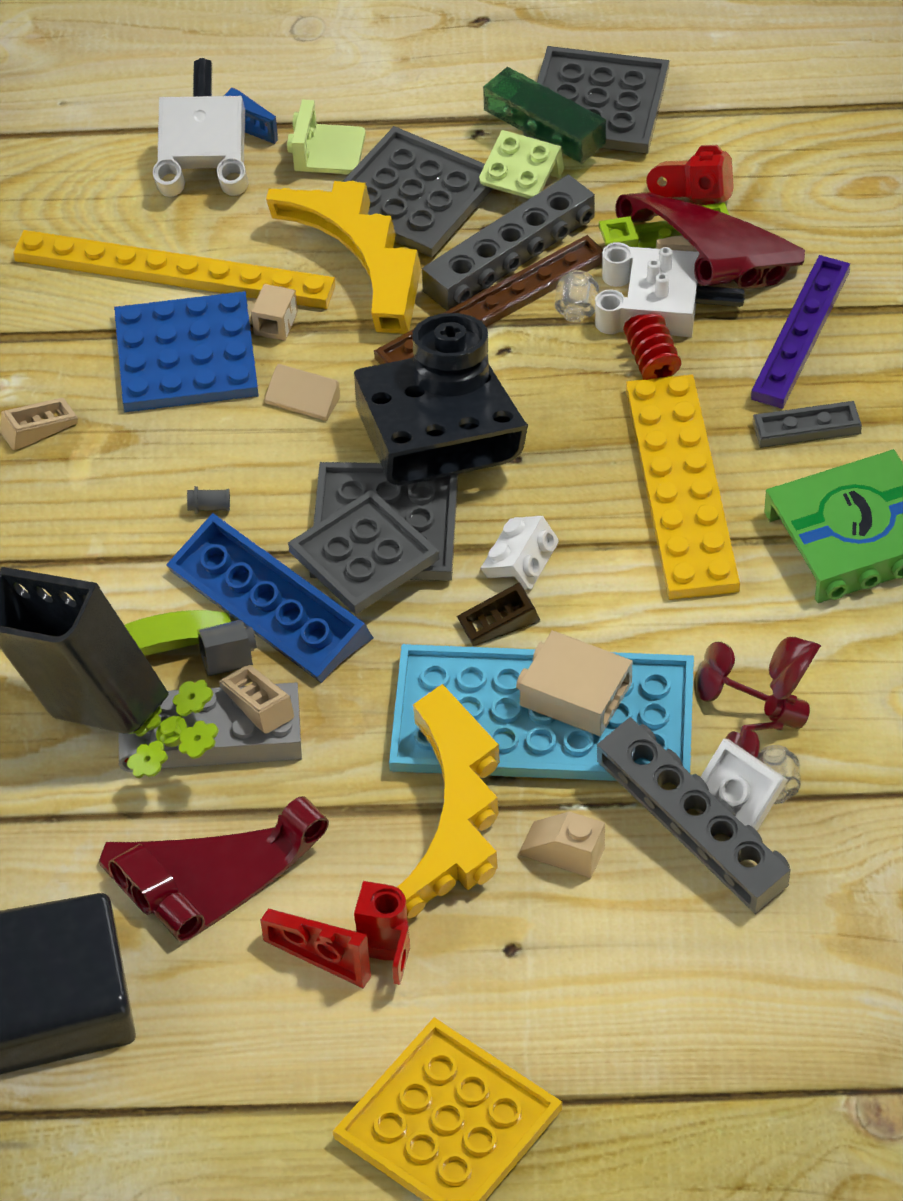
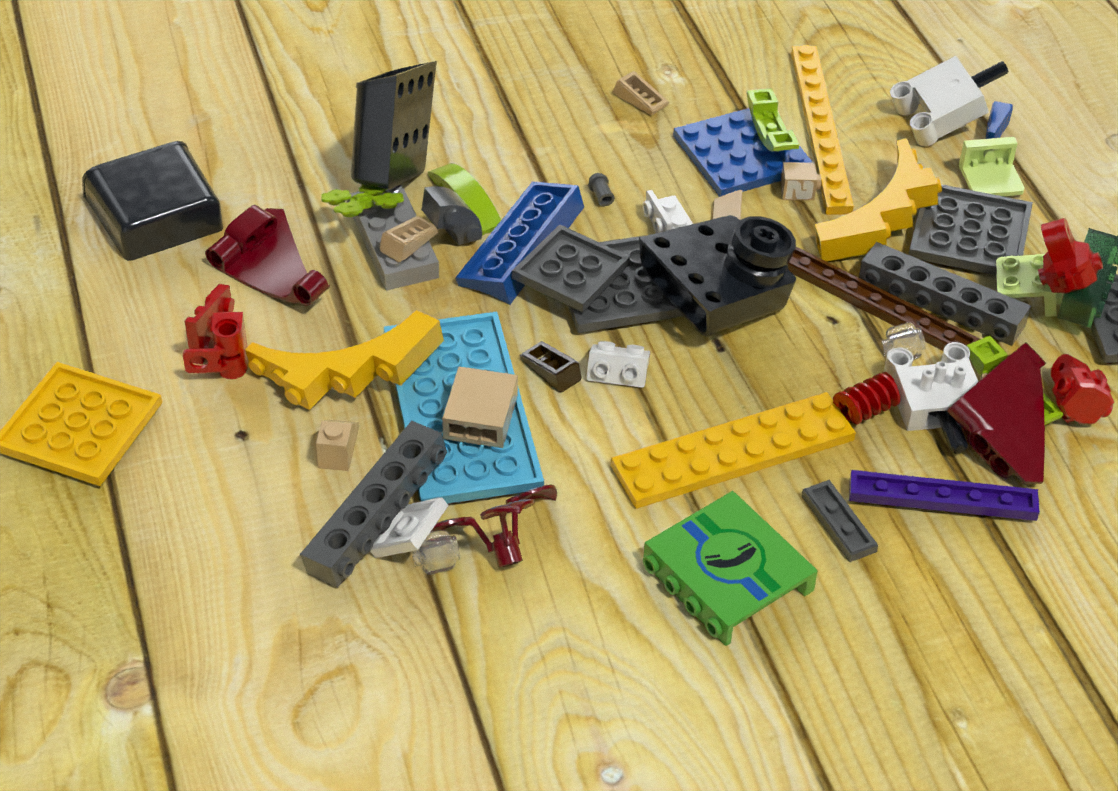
camera: 70 degrees right, 5 degrees down
(177, 308) = (768, 122): none -> lime slope
(285, 449) = (665, 212): none -> white bracket
(555, 113) = (1068, 263): none -> red piece

